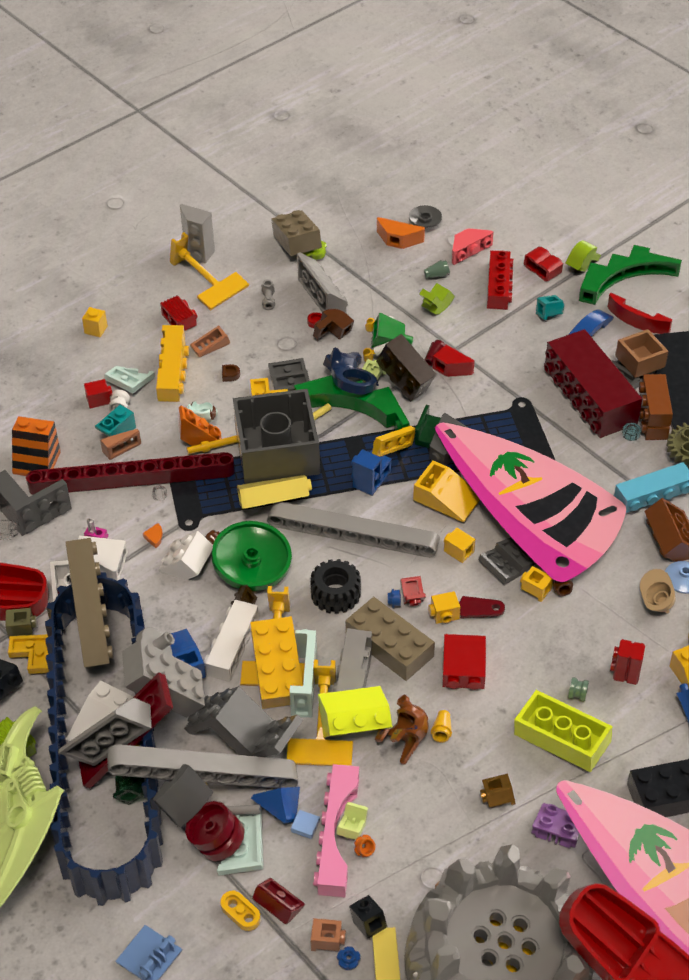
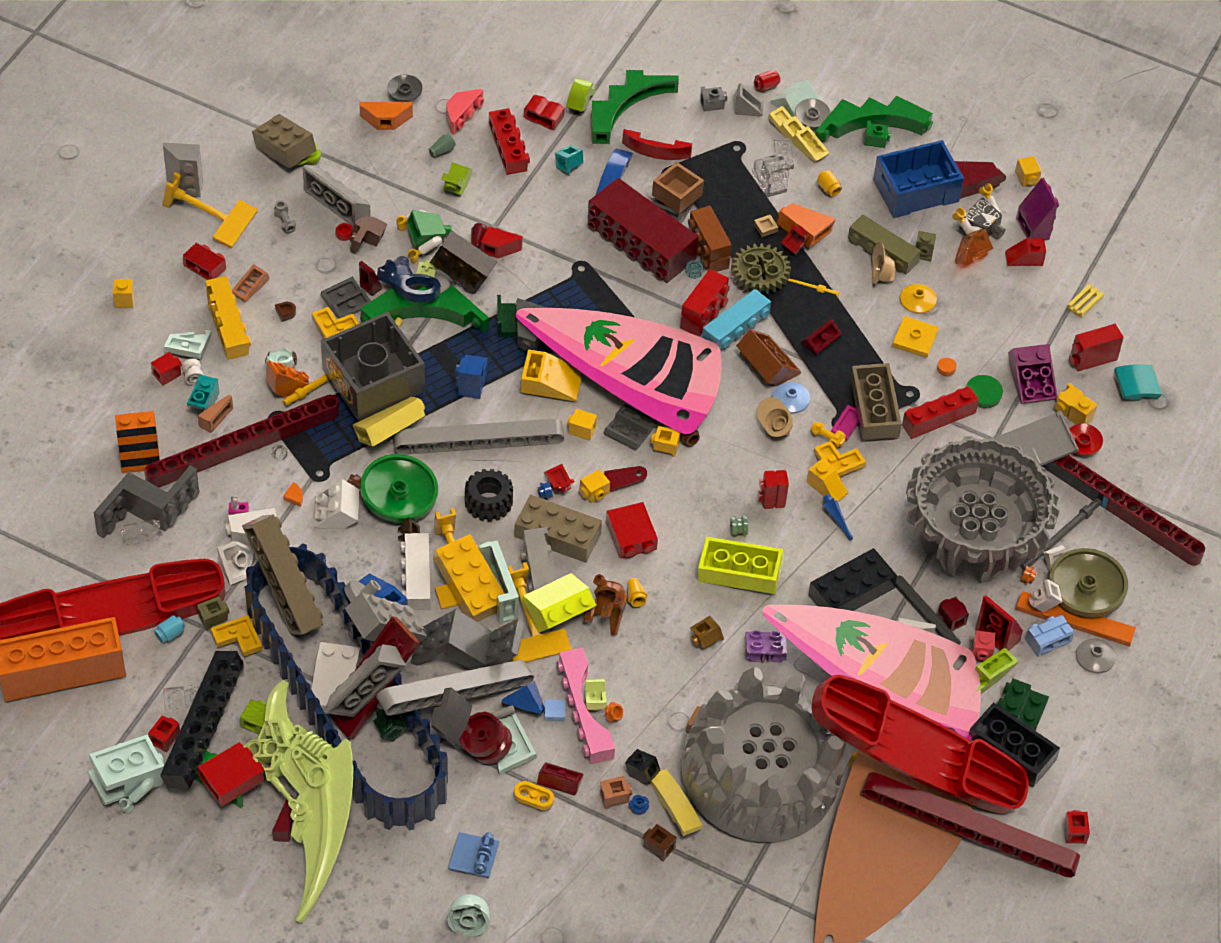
camera: 25 degrees left, 5 degrees up
(314, 363) = (368, 279): none -> dark red slope
(393, 441) = (482, 340): yellow plate -> none
(627, 461) = (704, 302): none -> red piece

